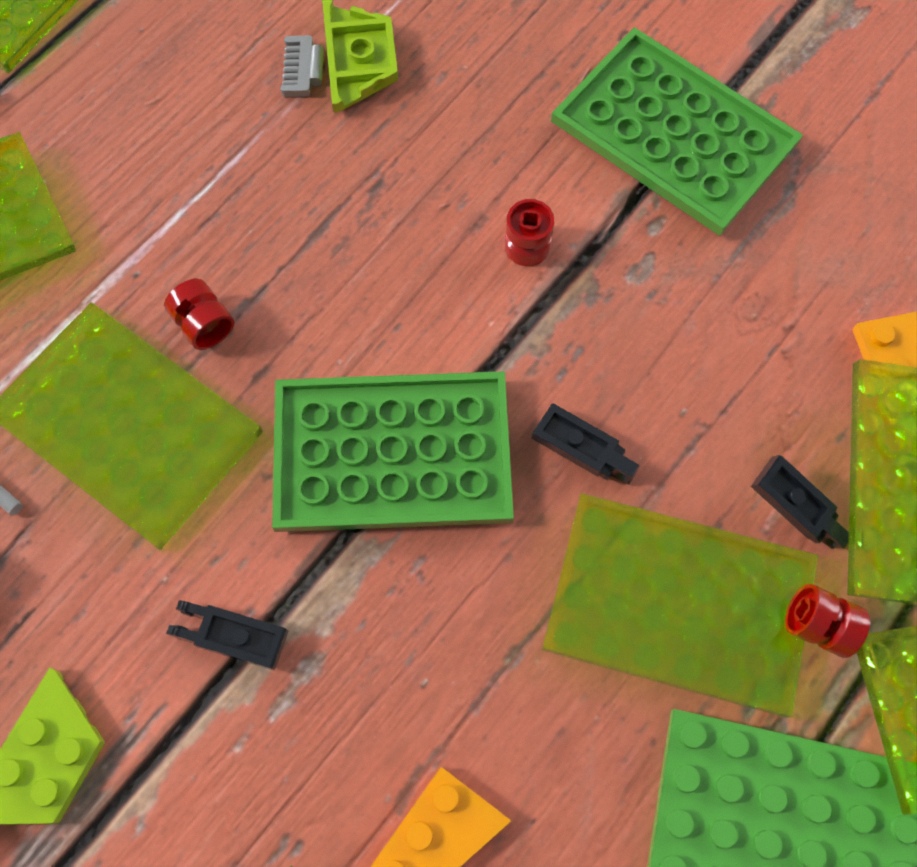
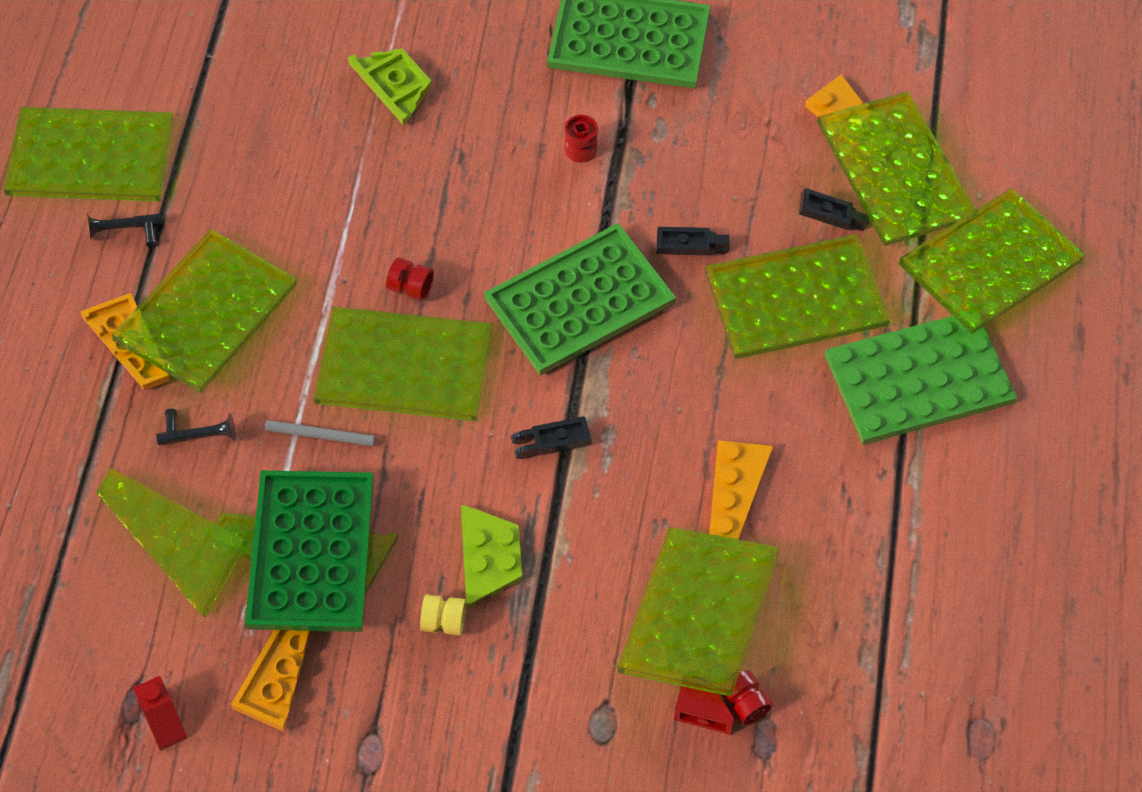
camera: 30 degrees left, 10 degrees down
(302, 66) = (364, 105): light grey piece -> none
(827, 621) = (879, 260): red wheel -> none

